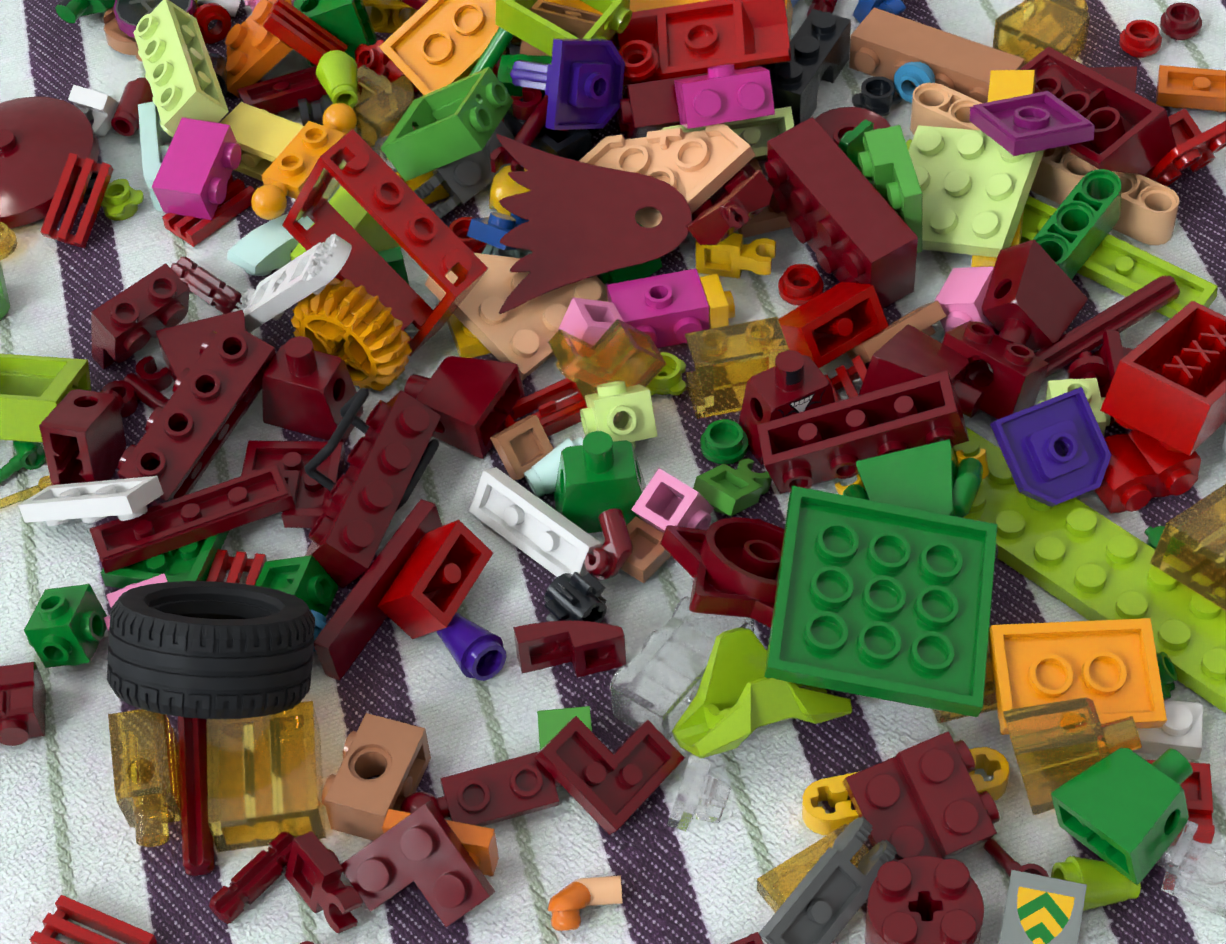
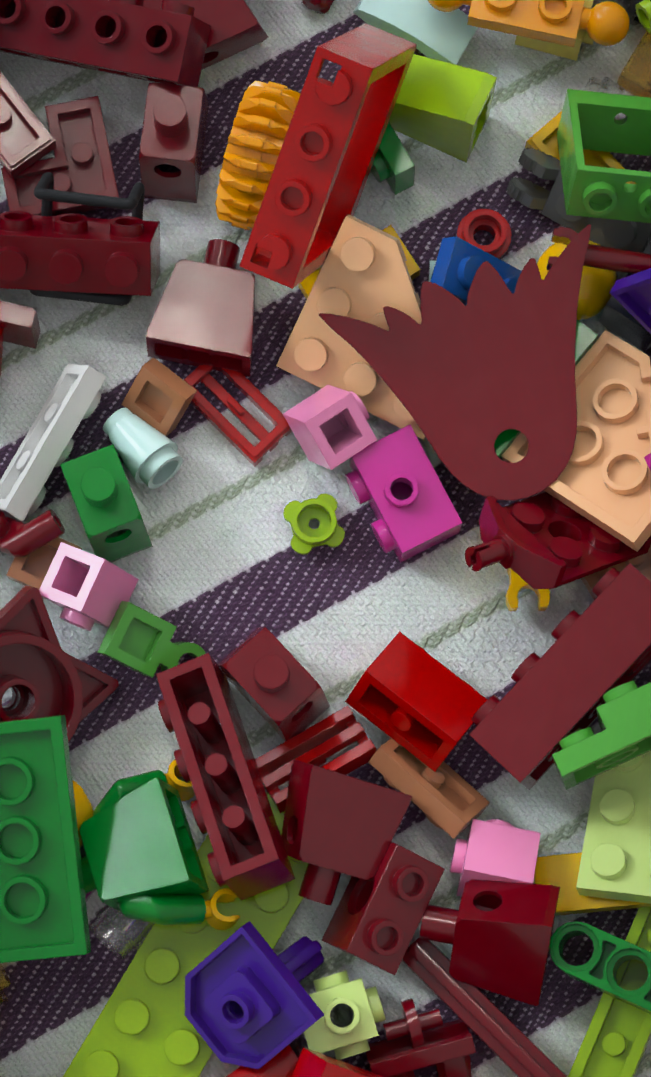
camera: 70 degrees right, 30 degrees up
(294, 282) = (271, 67): white piece -> none
(617, 356) = (282, 457): clear yellow brick -> none
(634, 407) = (218, 491): yellowish green brick -> none
(720, 302) = (429, 560): yellow plate -> none
(724, 442) = (225, 618): green plate -> none
(727, 359) = (319, 606): clear yellow hips -> none
(800, 284) = (501, 635): red plate -> none

